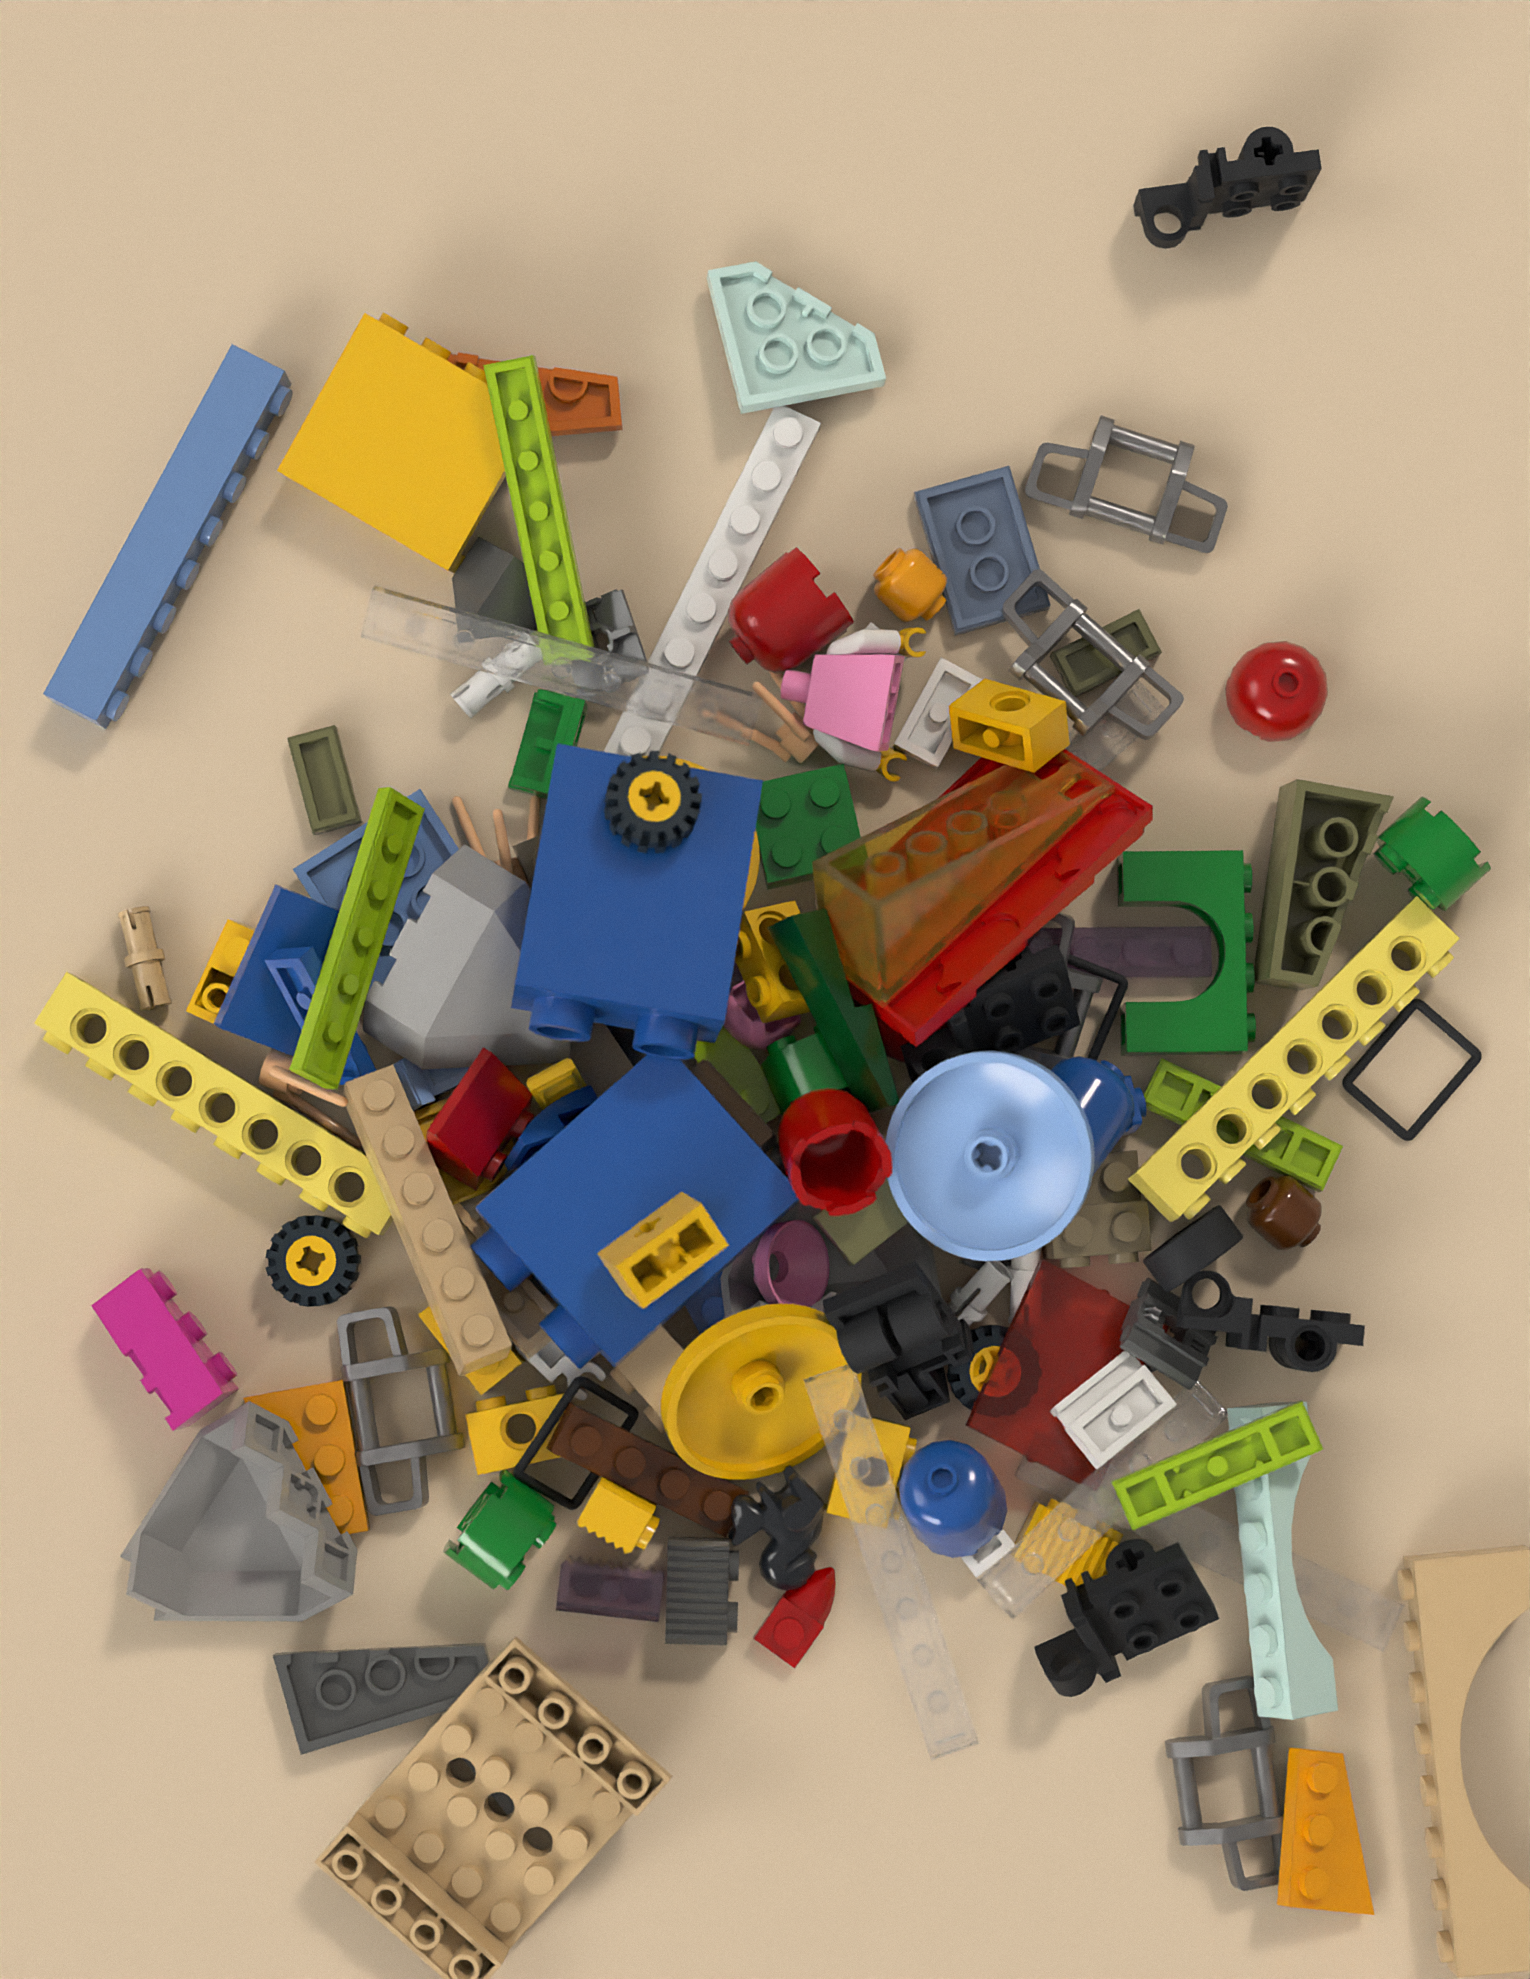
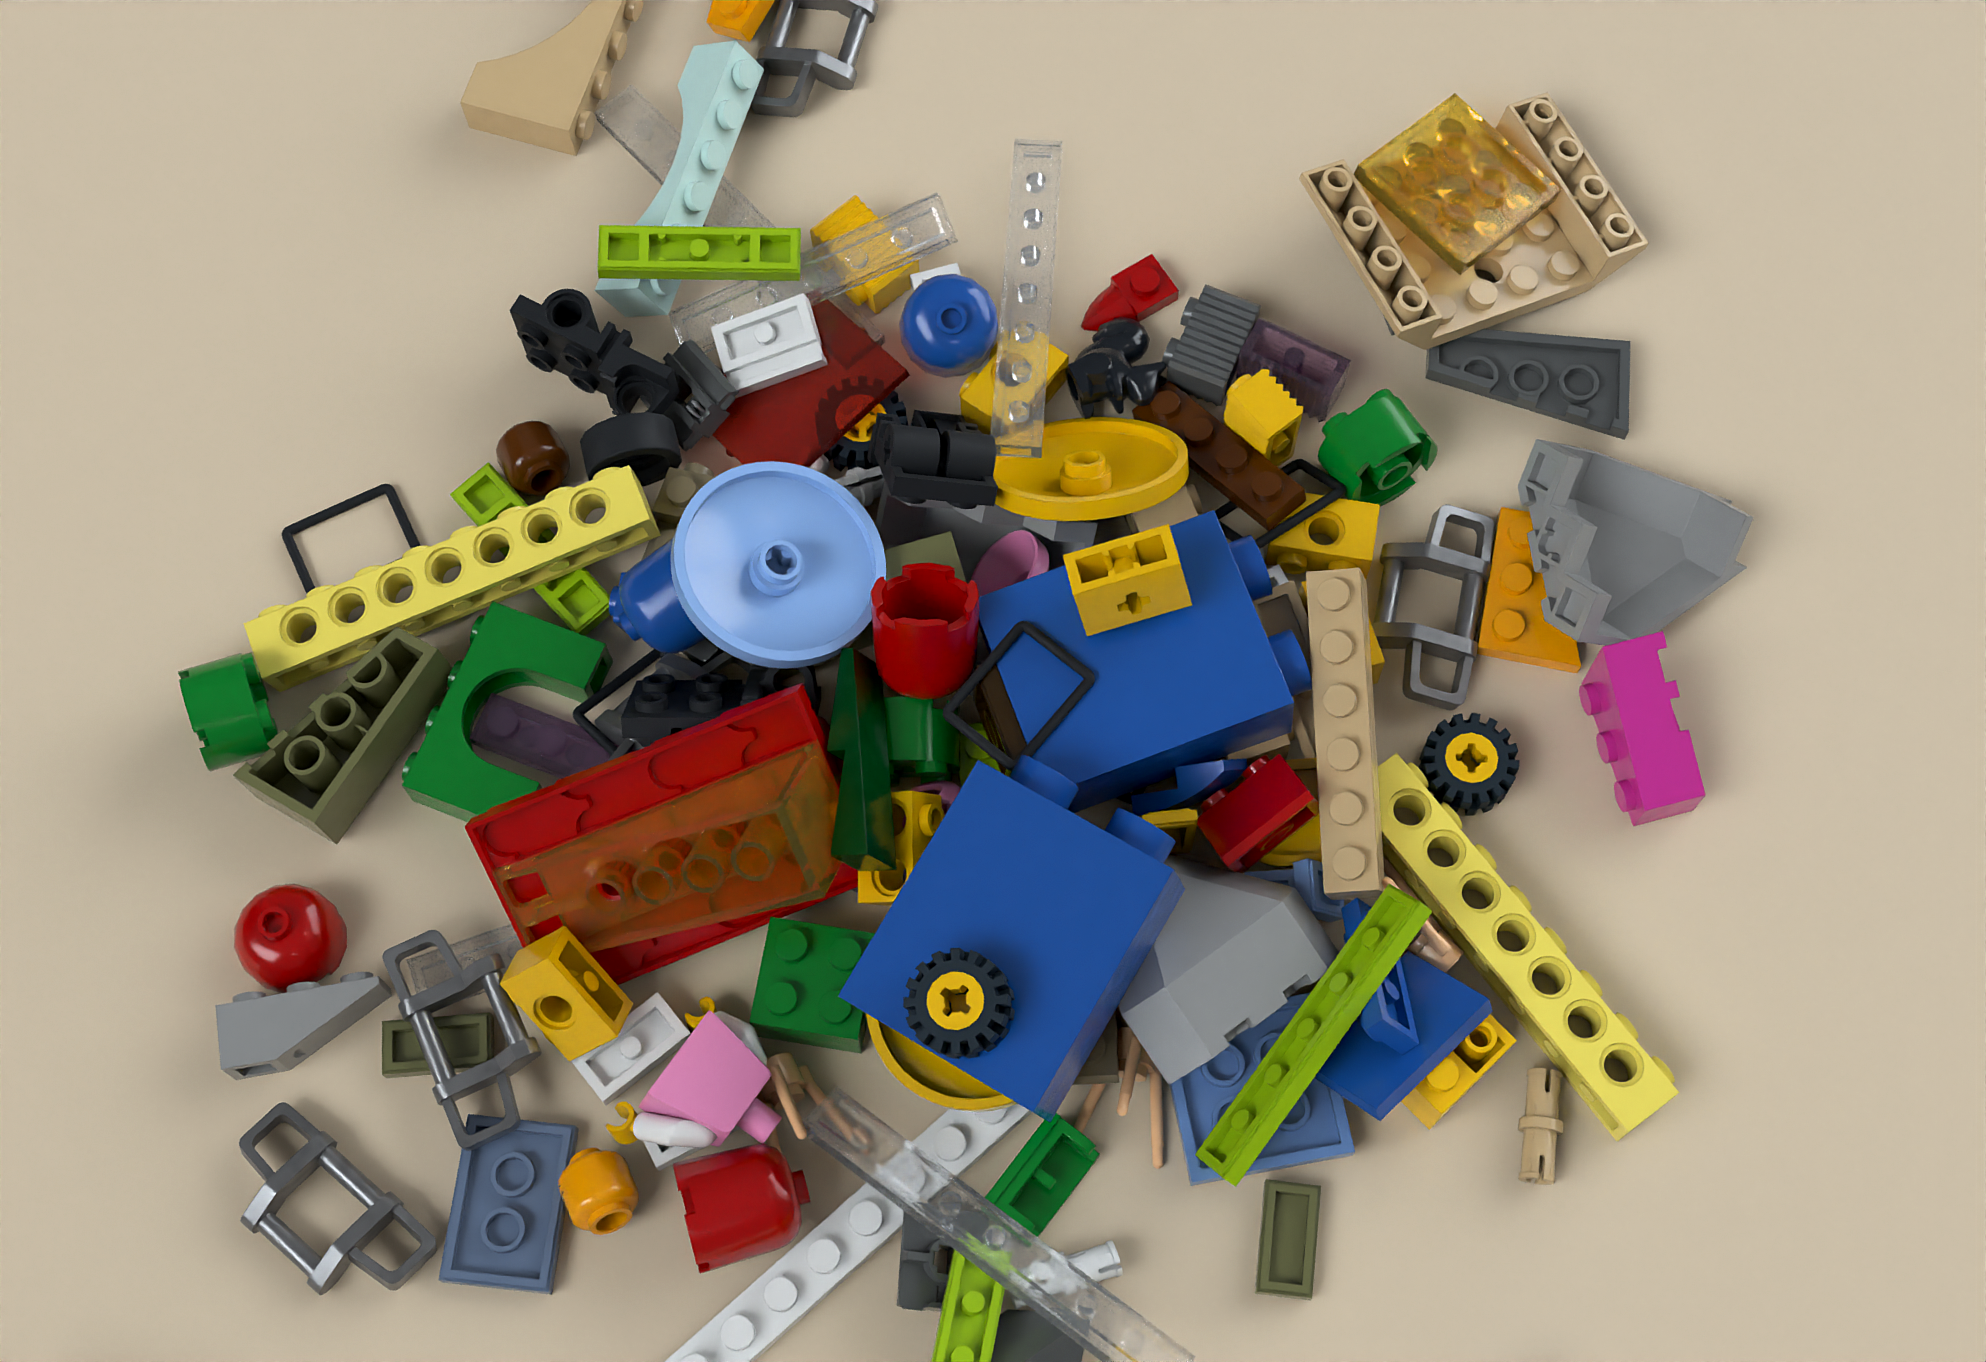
camera: 150 degrees left, 15 degrees down
(520, 1847) = (1457, 183): none -> clear yellow plate
(682, 1105) = (986, 666): none -> black piece
(1128, 1611) = (824, 179): black plate -> none
(1245, 604) = (281, 1030): none -> light grey slope

